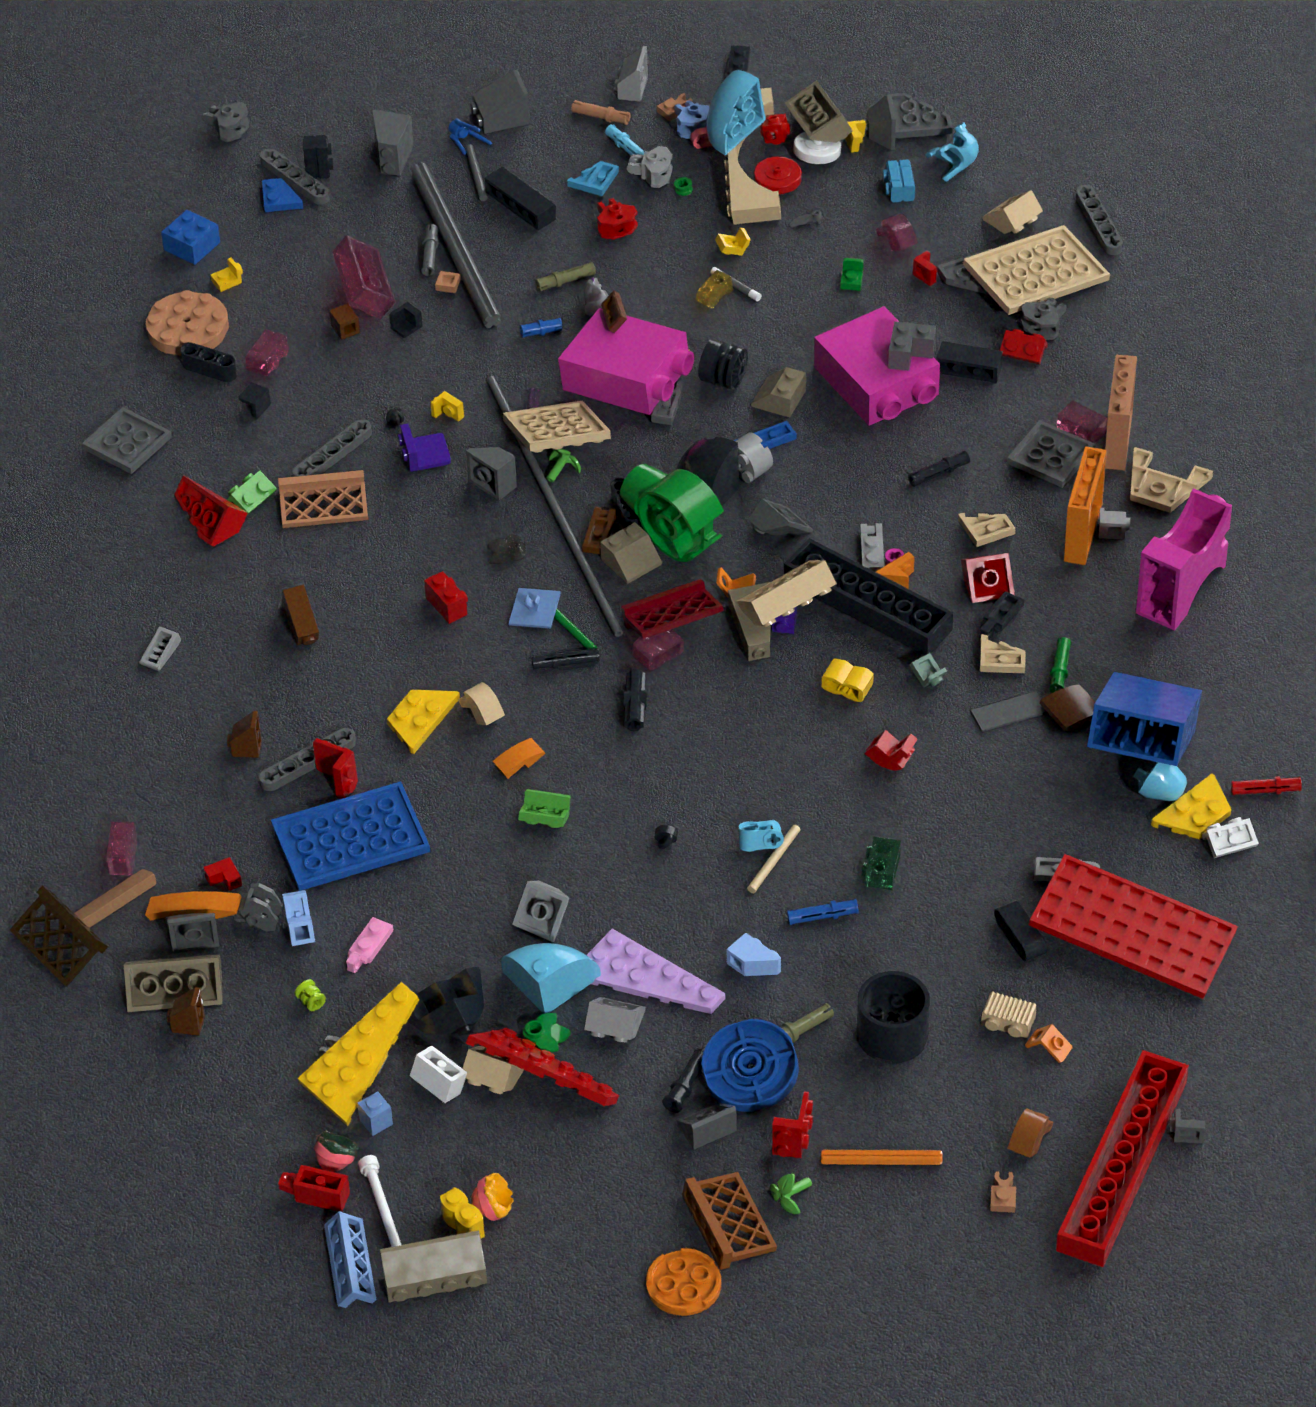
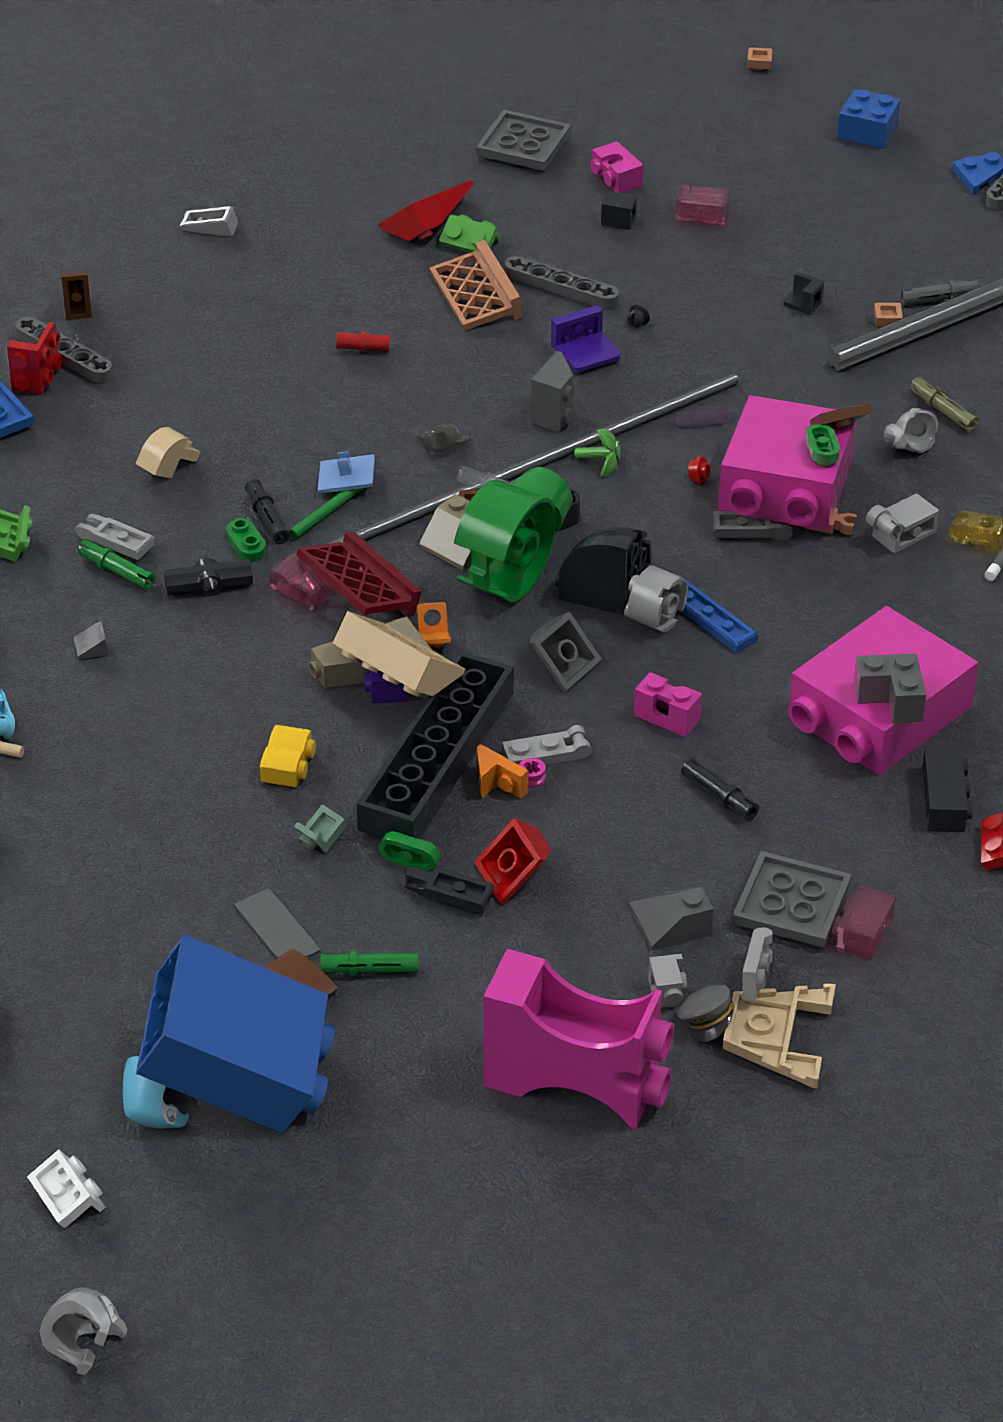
camera: 75 degrees right, 5 degrees down
(69, 282) = (759, 58): none -> nougat plate
(187, 319) = (730, 146): nougat piece -> none
(187, 398) = (617, 174): none -> dark pink brick
(208, 362) = (669, 168): black beam -> none
(227, 277) = (822, 159): yellow bracket -> none
(299, 615) = (276, 297): reddish brown slope -> none
(344, 321) = (780, 249): reddish brown brick -> none
(363, 277) = (849, 239): clear pink brick -> none
(370, 576) = (363, 341): none -> red pin
(420, 714) = (143, 415): yellow wing -> none
(446, 597) = (338, 399): red brick -> none
(449, 405) = (665, 348): yellow bracket -> none
(521, 754) = (95, 500): orange slope -> none
(540, 327) = (839, 397): blue pin -> none
(556, 426) = (647, 426): tan plate -> none
(566, 749) = (115, 536): none -> light grey hinge
(578, 529) = (475, 478): none -> clear axle
(592, 676) = (246, 540): none -> green plate
(593, 756) = (107, 559): none -> green pin
(601, 413) = (699, 470): none -> red plate
(645, 326) = (822, 444): none -> green plate
(686, 775) = (91, 642): none -> flat silver slope
(695, 322) = (903, 522): none -> light grey hinge
(723, 364) = (823, 549): black wheel -> none
(781, 392) = (806, 622): dark tan slope -> none
(844, 477) = (680, 702): none -> dark pink brick
(890, 752) = (162, 811): red brick -> none
(962, 629) = (409, 851): none -> green plate
(986, 527) = (617, 851): tan wing -> none
(1001, 657) = (370, 898): tan wing -> none
(1048, 510) = (674, 917): none -> dark grey slope
(1085, 505) = (648, 882): orange window -> none
(1120, 411) = (874, 969): nougat window -> none
(1124, 477) = (757, 963): none -> light grey plate
(1145, 508) = (707, 1012): none -> piece
(1196, 809) = (122, 1150): yellow wing -> none
(1266, 786) = (181, 1231): red pin -> none

